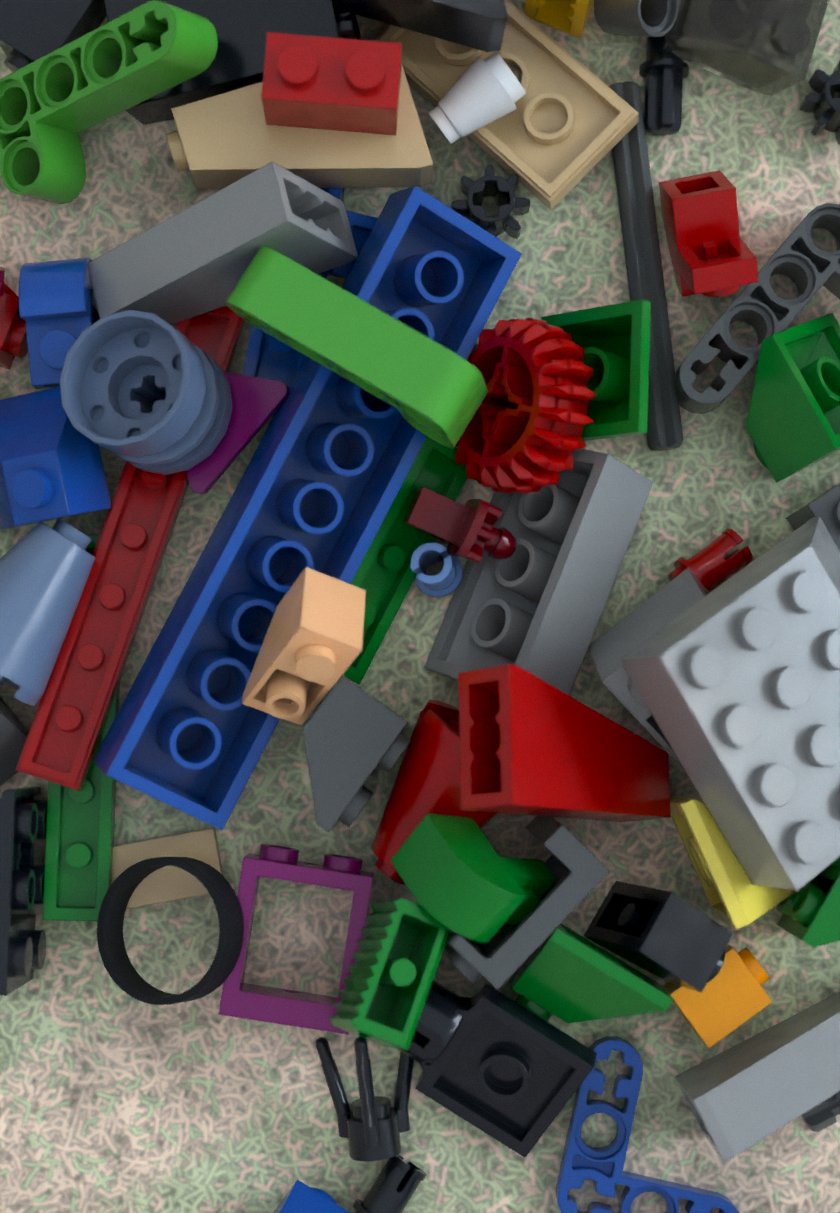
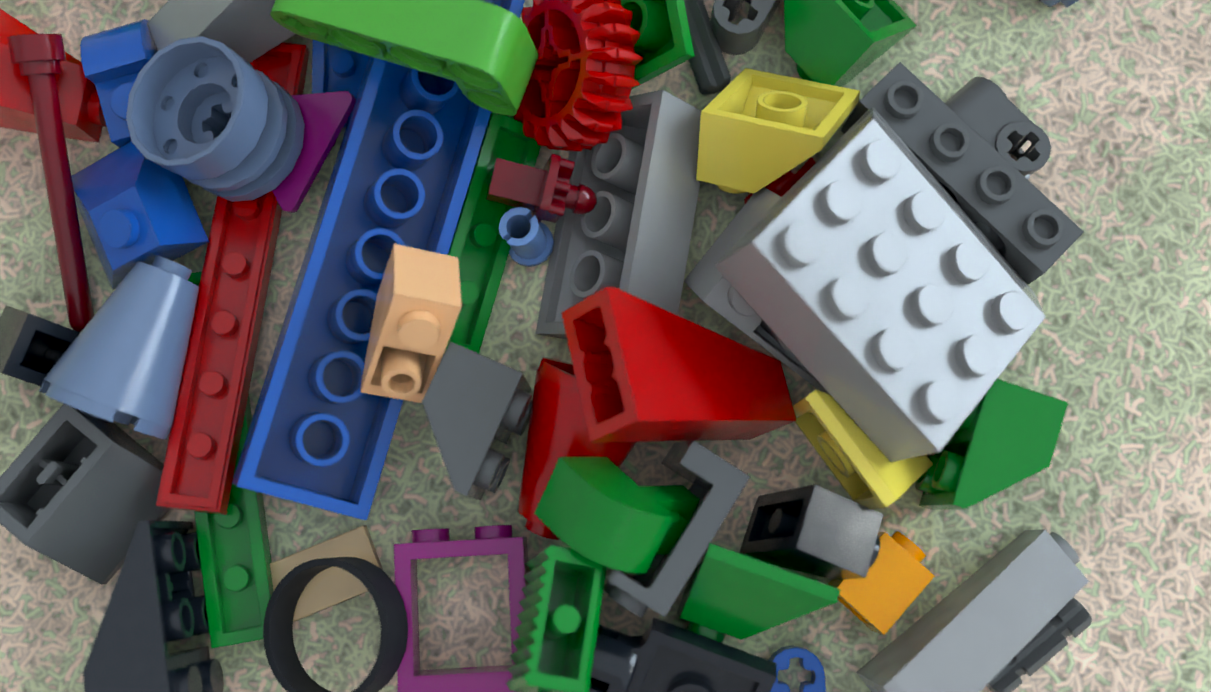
camera: 10 degrees left, 5 degrees down
(710, 510) = (766, 128): none -> light yellow slope

